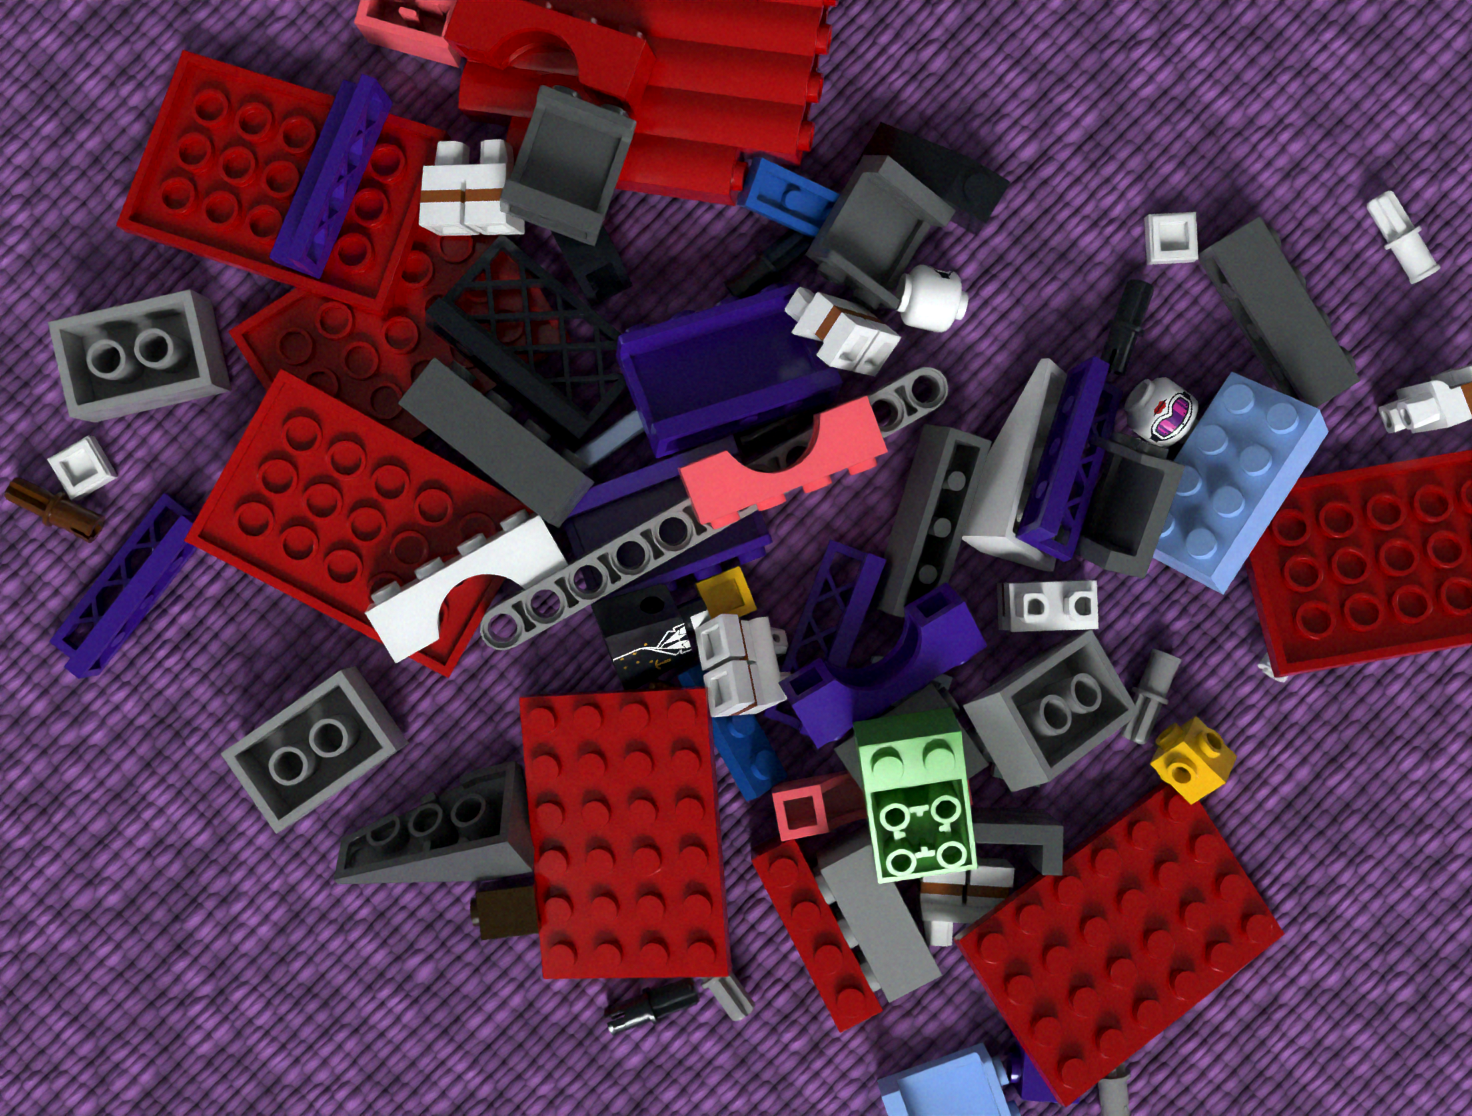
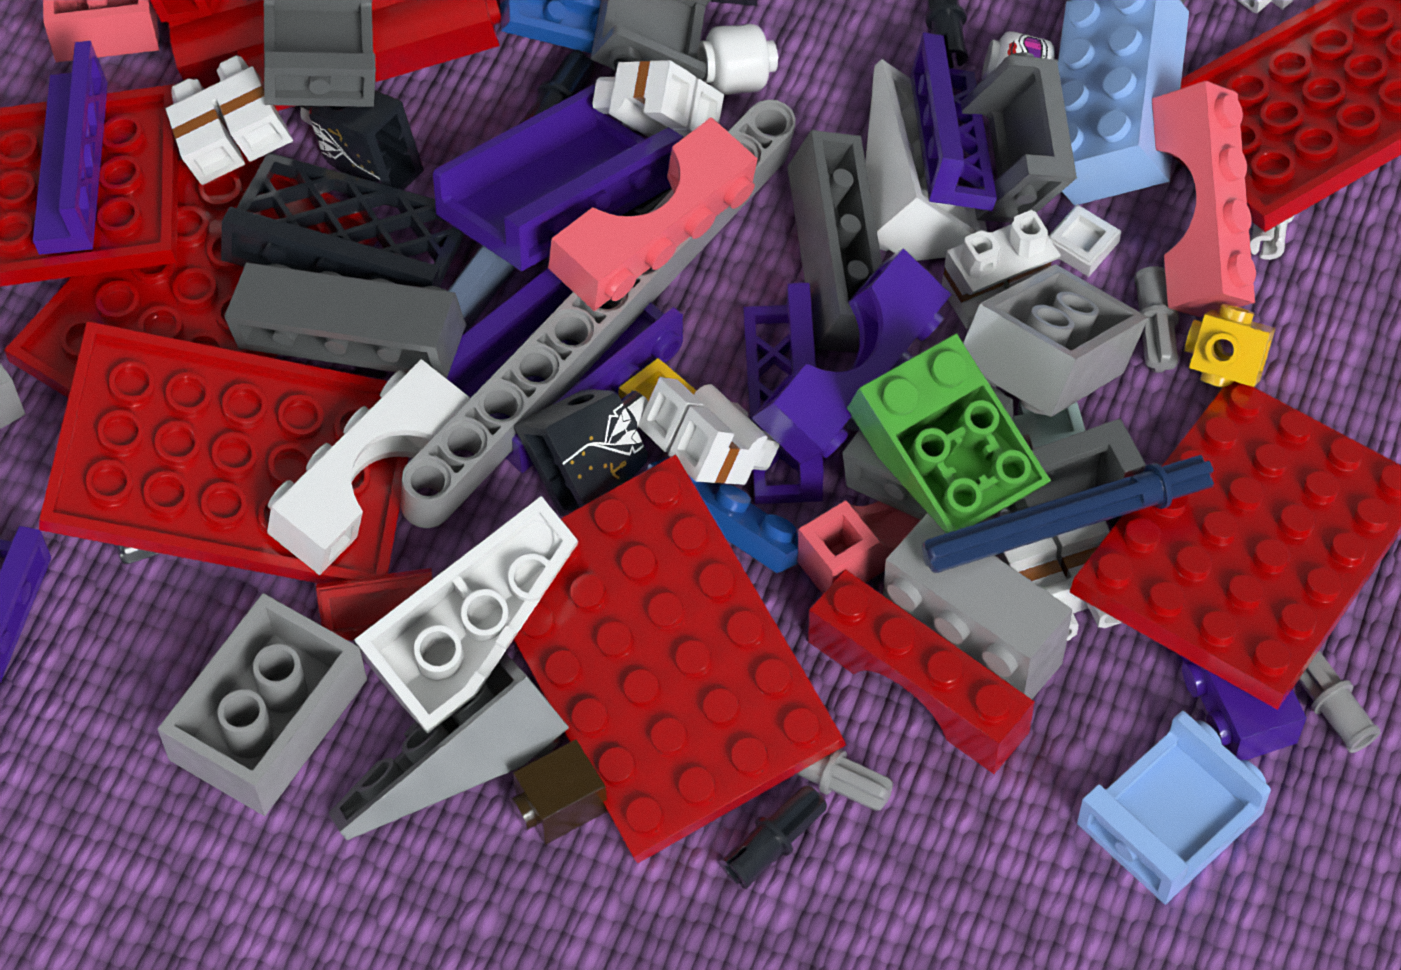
camera: 20 degrees left, 30 degrees down
(437, 691) = (359, 603): none -> red tile
(480, 755) = (457, 627): none -> white wedge
(978, 895) = (1152, 487): none -> dark blue axle
(1129, 595) = (1084, 239): none -> white tile
(1269, 583) = (1214, 255): none -> coral arch

